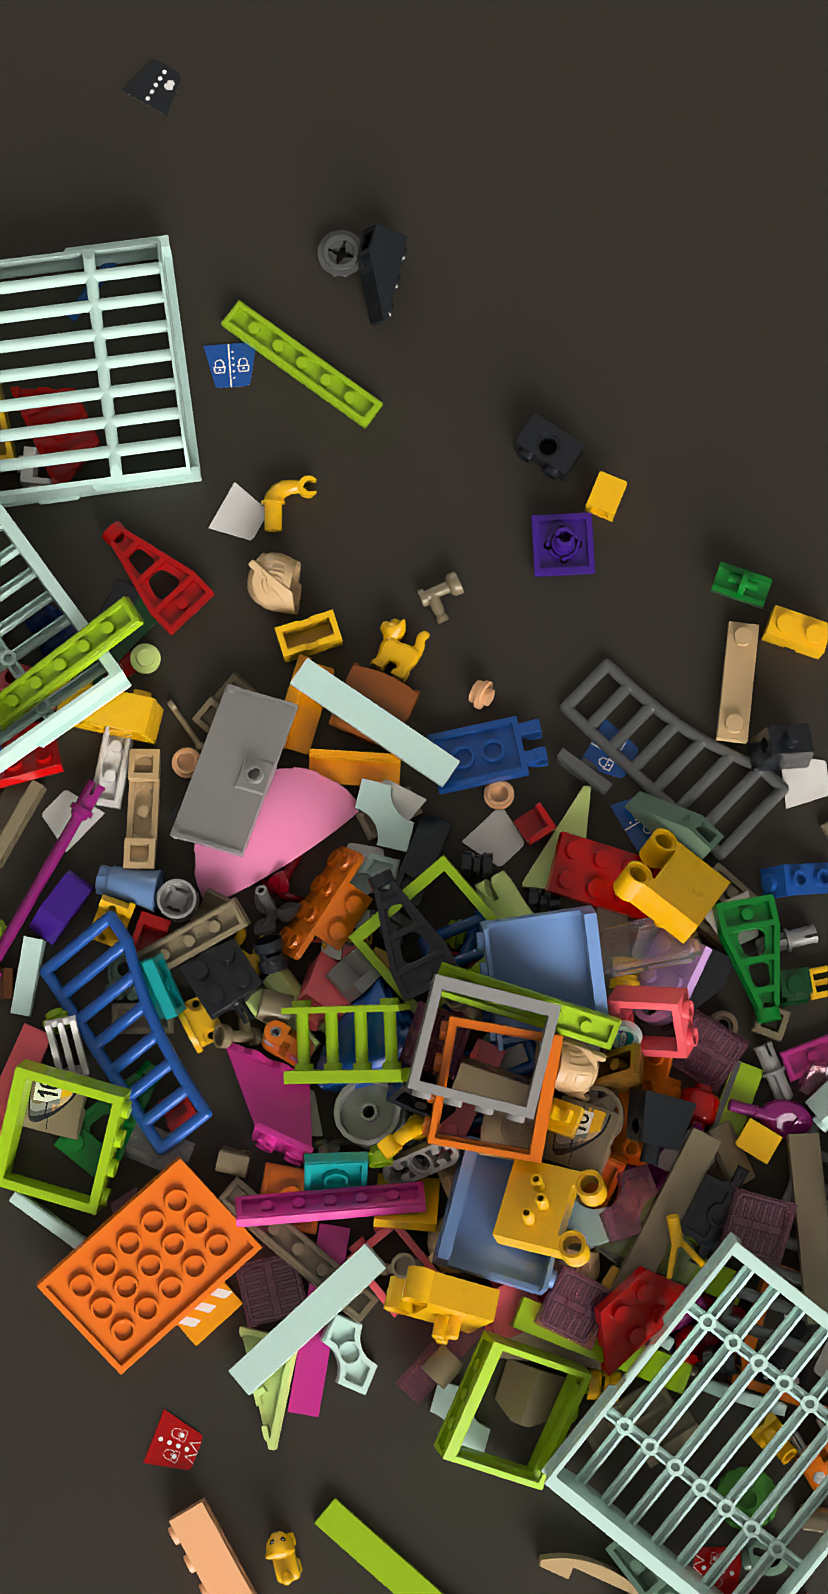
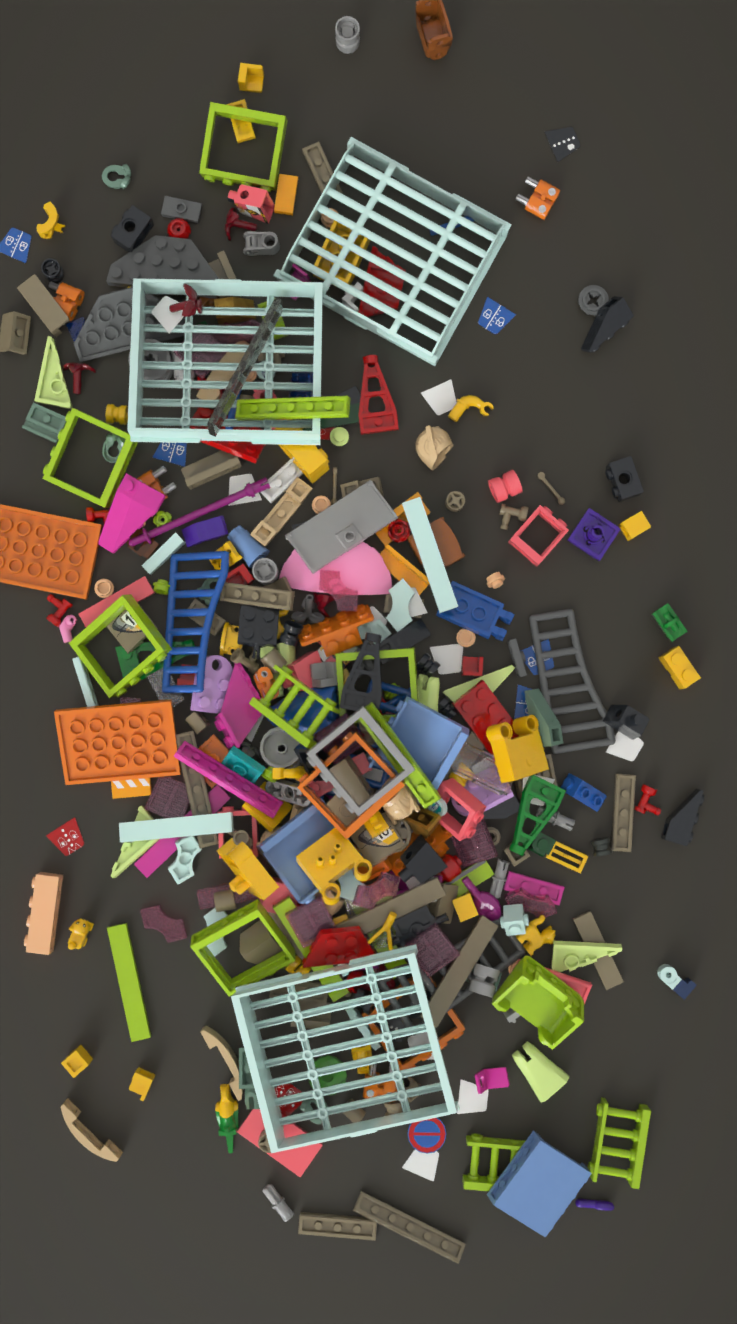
camera: 35 degrees right, 5 degrees up
(60, 1023) = (149, 601): white tile -> none
(162, 987) = (225, 609): teal panel -> none
(182, 176) = (542, 198): none -> orange piece
(223, 1094) = (215, 686): none -> lavender plate
(276, 851) = (331, 583): none -> clear pink tile
(302, 364) = (530, 343): lime tile -> none
(303, 718) = (397, 525): none -> red plate
(309, 636) = (429, 486): yellow brick -> none
(357, 626) = (455, 498): none -> dark tan wheel
(370, 1462) = (171, 928): none -> clear pink tile
(396, 652) = (467, 525): yellow animal -> none
(406, 563) = (505, 486): none -> coral wheel
(441, 520) = (541, 476): none -> dark tan hinge
(494, 627) = (559, 525): none -> coral window
(737, 682) = (629, 670): tan plate -> none

